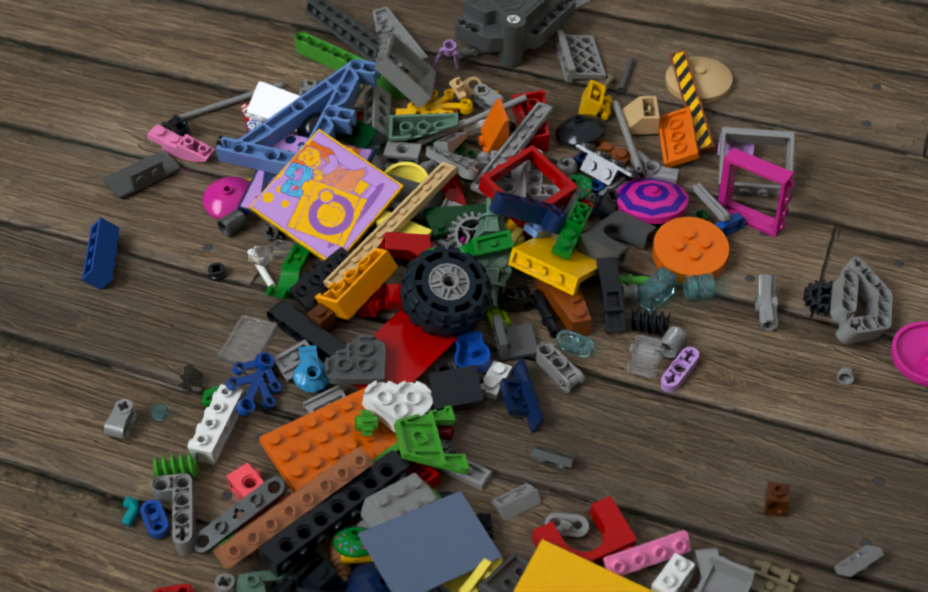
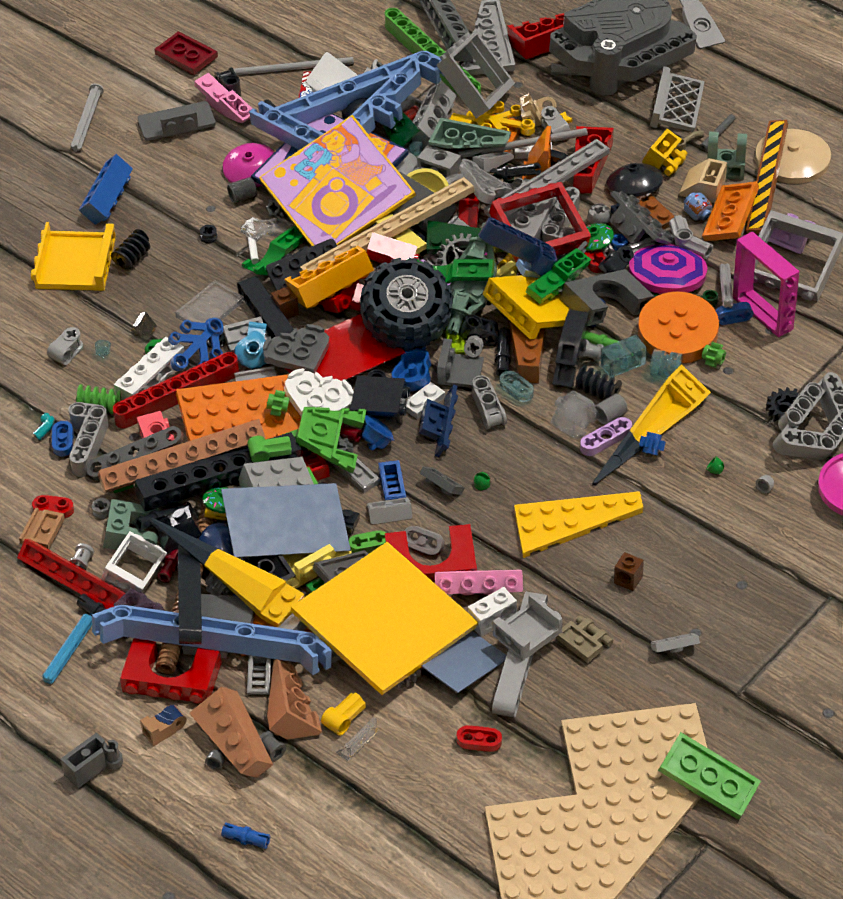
camera: 20 degrees right, 0 degrees up
(53, 190) = (86, 117): none -> light grey axle
(93, 330) = (73, 259): none -> yellow panel
(126, 111) = (186, 53): none -> dark red plate
(149, 305) = (131, 249): none -> black piece
(246, 439) = (163, 395): none -> red beam
(376, 476) = (263, 449): none -> bright green piece
(436, 30) = (534, 37): none -> red wedge
(449, 50) = (535, 62): lavender plant -> none
(469, 427) = (376, 433): none -> blue piece
(473, 148) = (509, 171): none -> black pin
(503, 455) = (390, 467): none -> blue slope
(513, 541) = (367, 541): none -> bright green beam
(523, 316) = (469, 350): none -> light grey bush
(589, 446) = (481, 481): none -> green hinge
(630, 144) = (677, 196): light grey piece -> none
(646, 140) = (697, 206): none -> medium blue head
(659, 90) = (734, 158): none -> sand green brick
(686, 463) = (564, 520): none -> yellow wing
(723, 322) = (671, 403): none -> yellow plate
(727, 365) = (652, 443): none -> blue gear
(734, 267) = (713, 354): none -> bright green gear
(766, 302) = (725, 395): light grey piece -> none
(792, 370) = (715, 466): none -> green hinge

